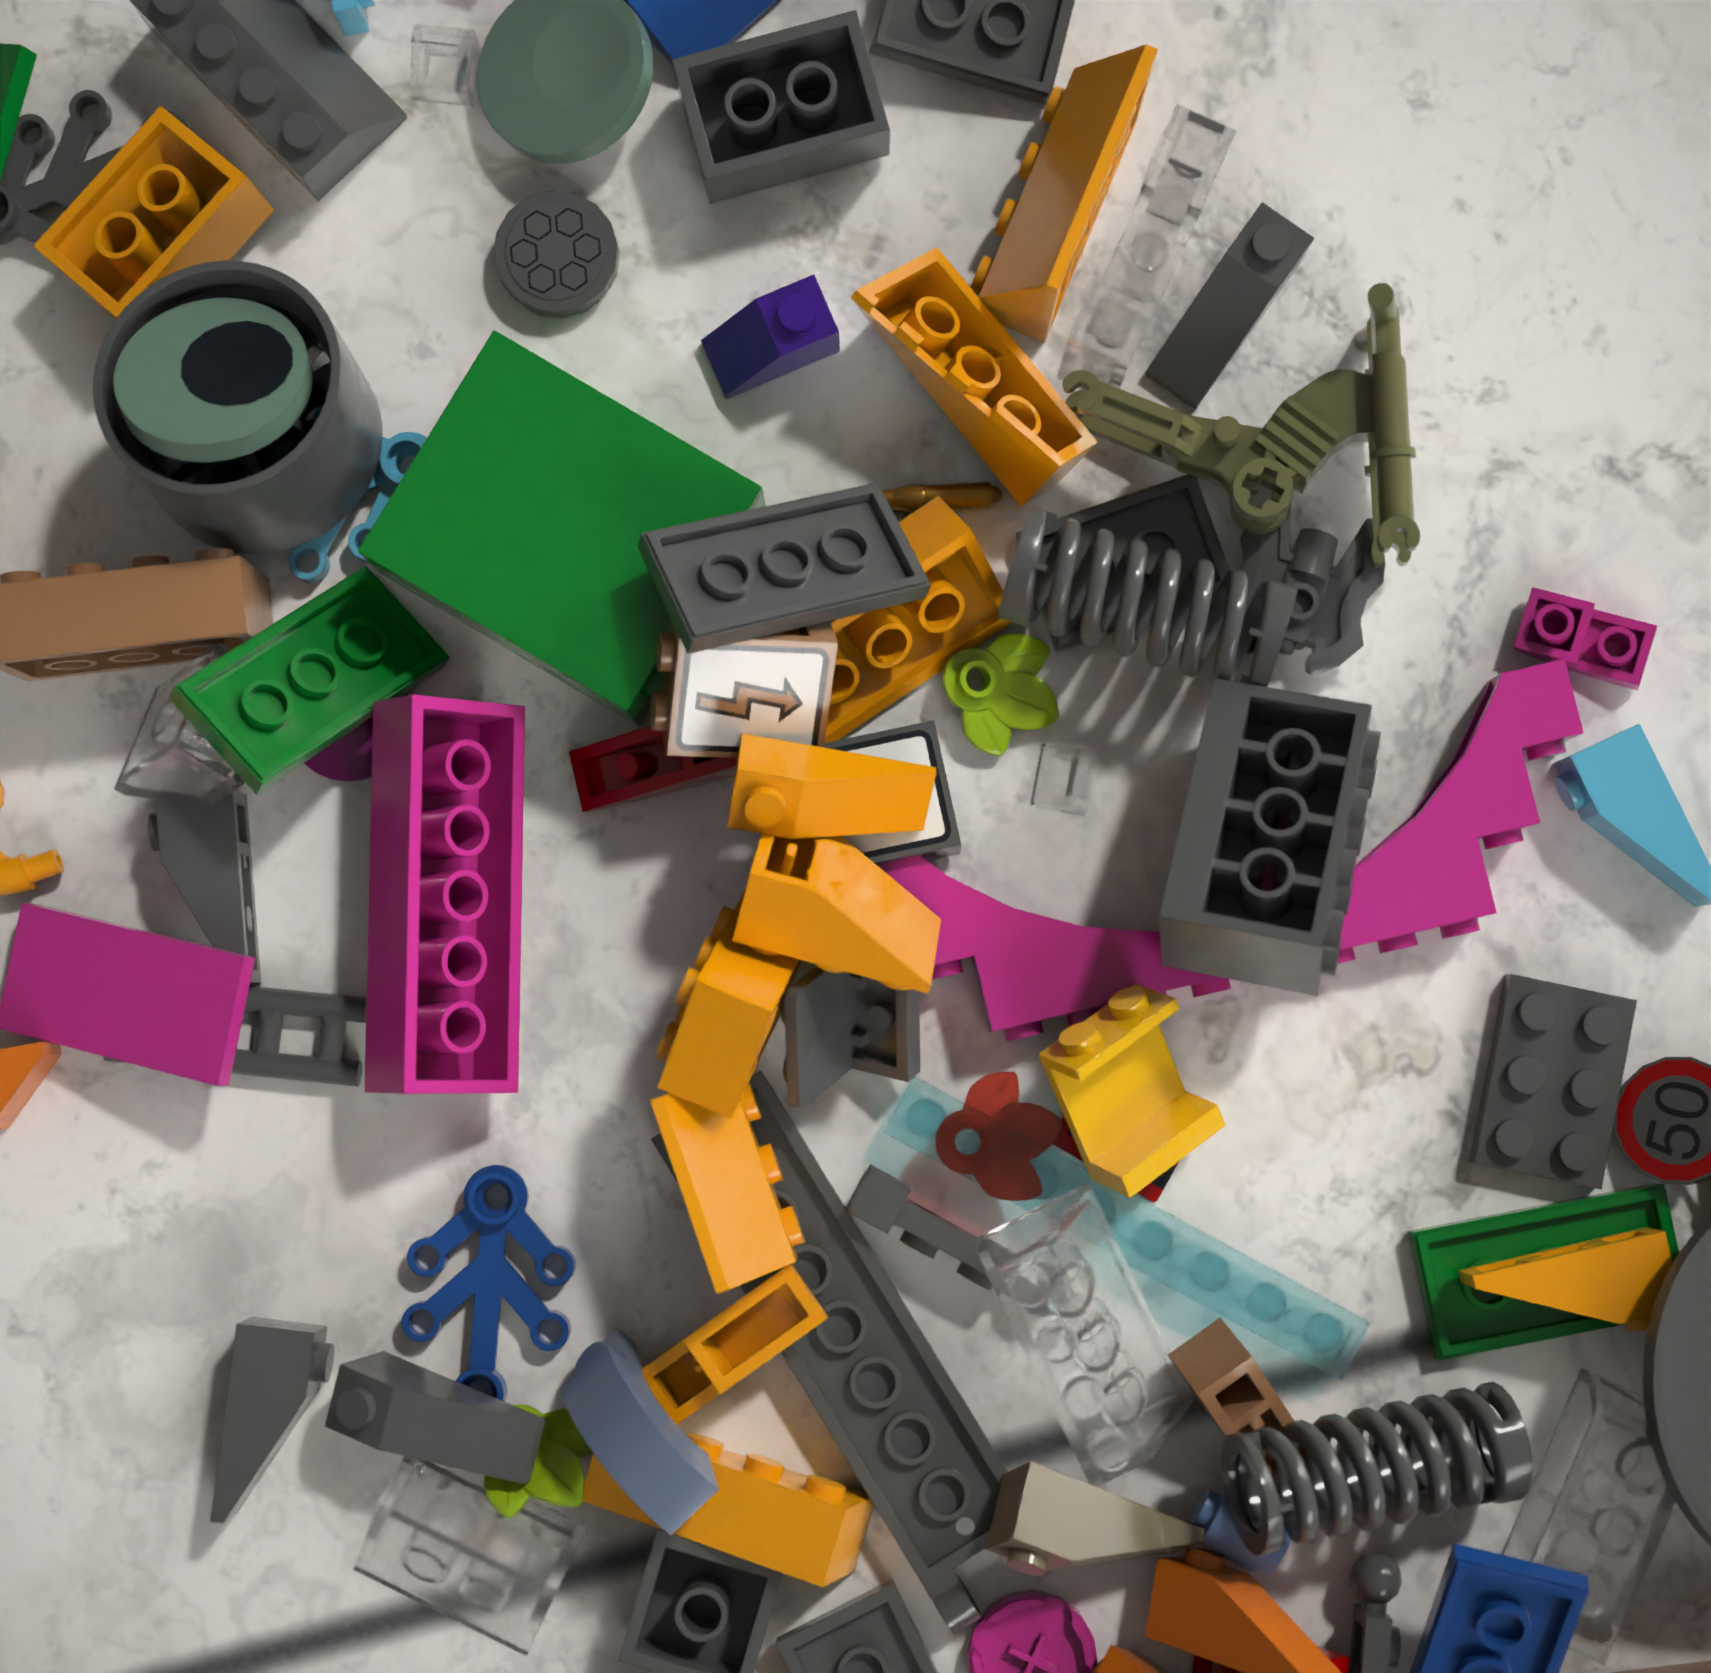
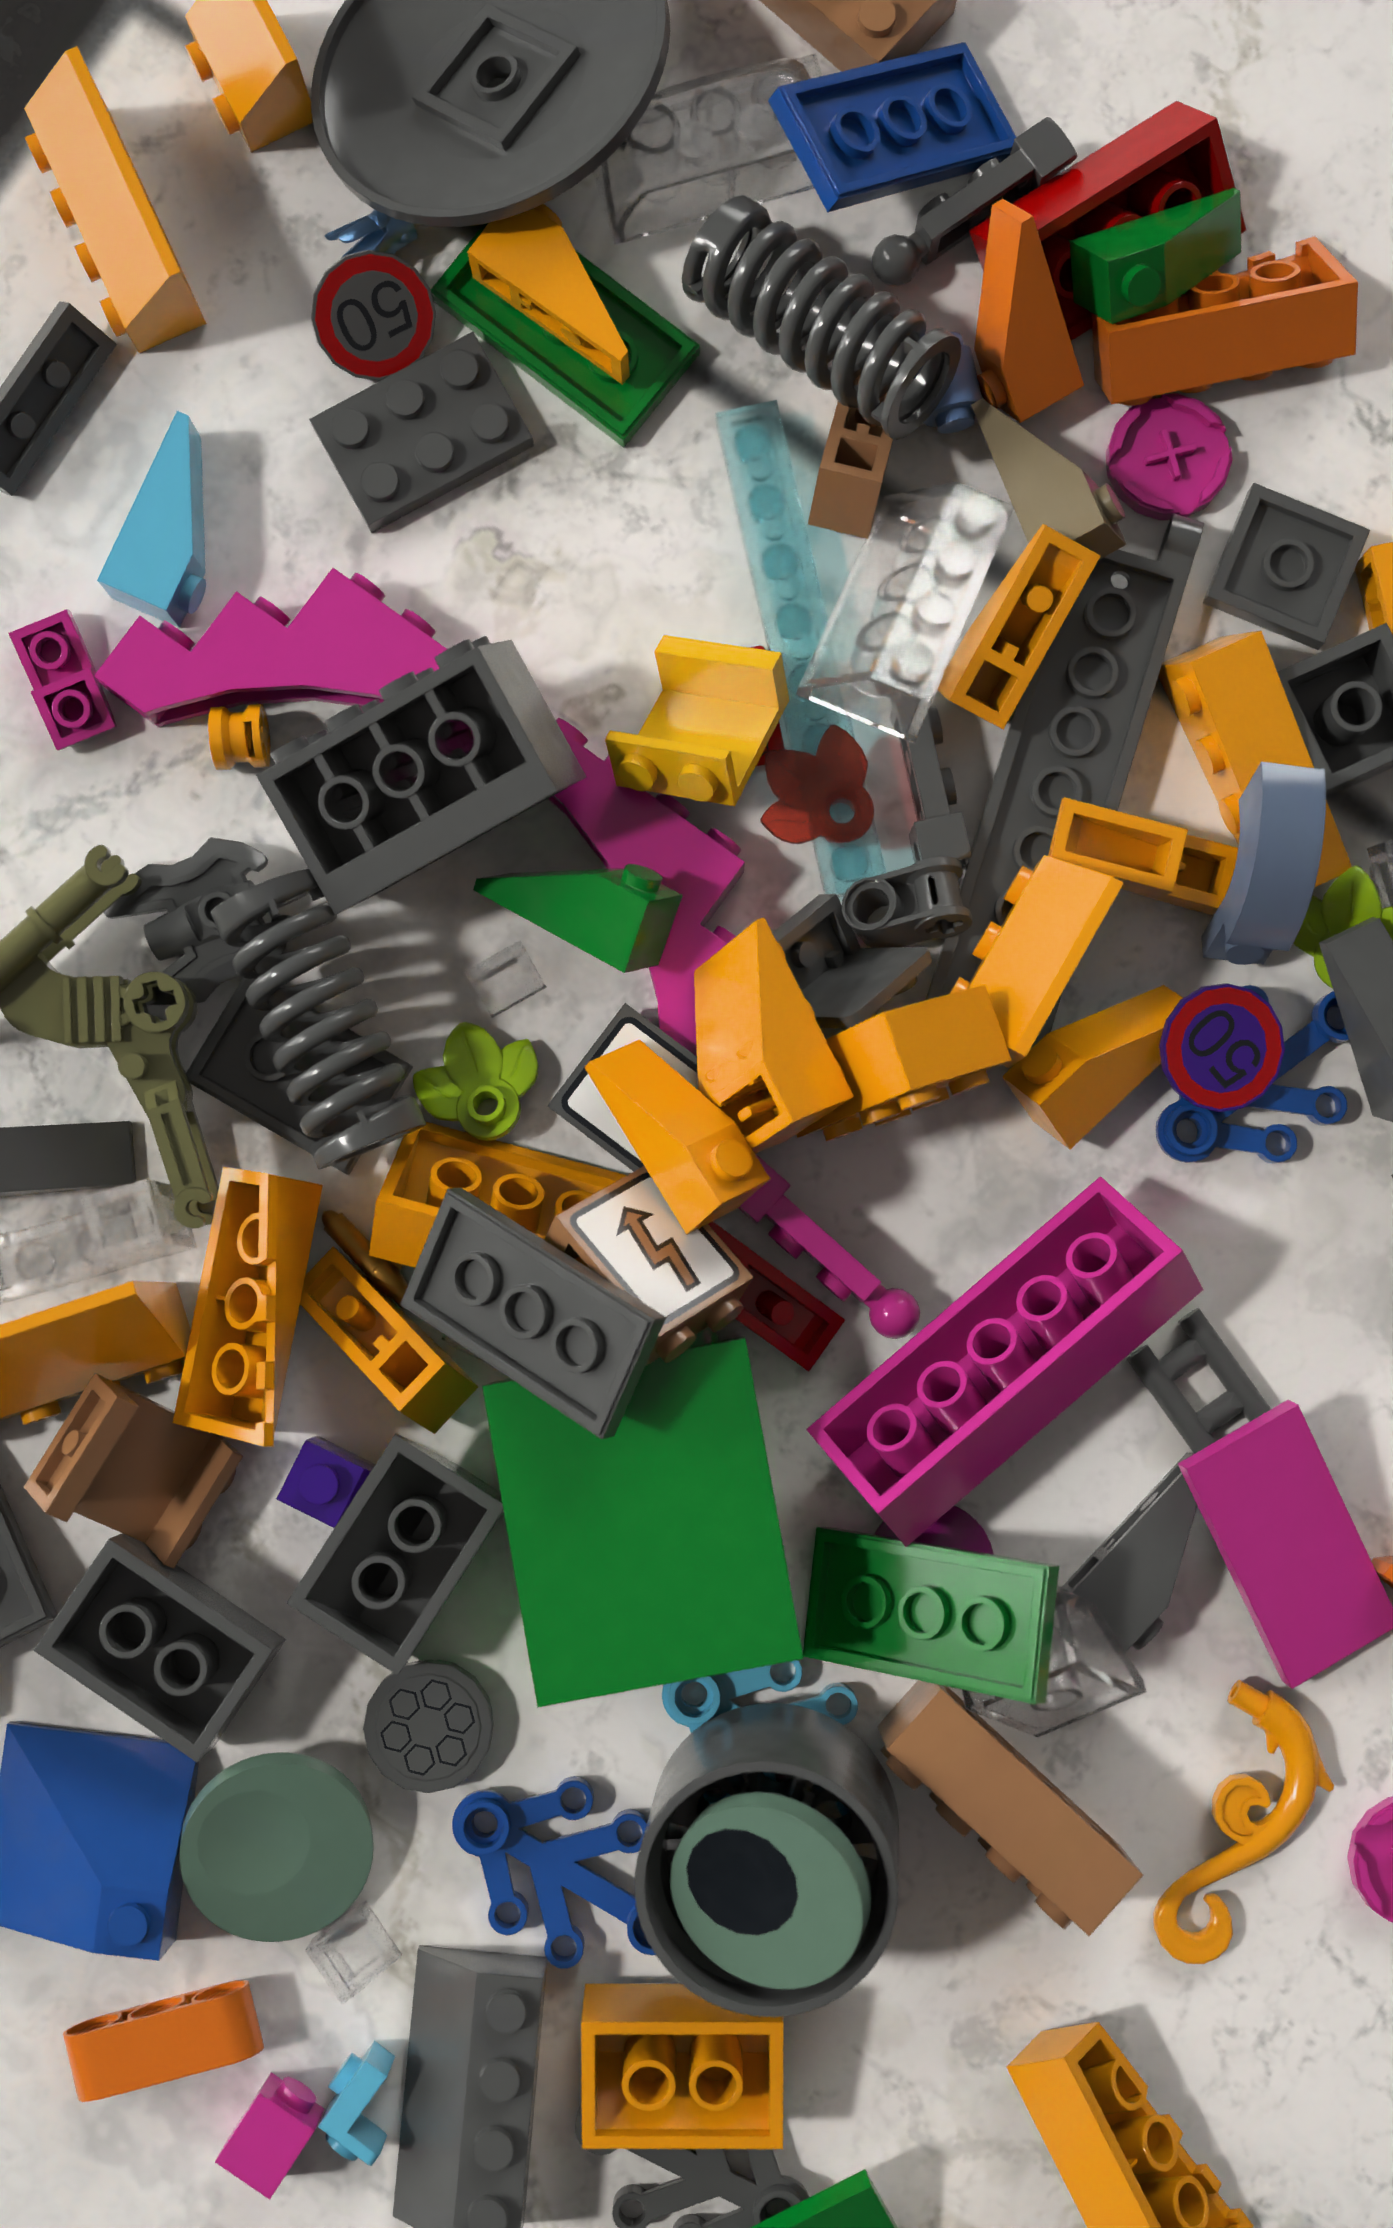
camera: 135 degrees left, 0 degrees up
(380, 259) = (550, 1861): none -> blue plant
(533, 1273) = (1222, 1047): none -> piece
(557, 850) = (892, 1311): none -> dark pink plate
(606, 1173) = (1091, 1065): none -> light orange slope
(698, 331) = (398, 1552): none -> dark grey slope
(845, 1141) = (921, 903): none -> dark grey piece
(848, 451) = (385, 1342): none -> light orange slope
(928, 190) = (133, 1469): none -> medium nougat panel
(992, 1401) = (1017, 627): none -> light orange slope
(1047, 886) = (608, 913): none -> green slope
(1424, 733) = (239, 737): none -> light orange wheel

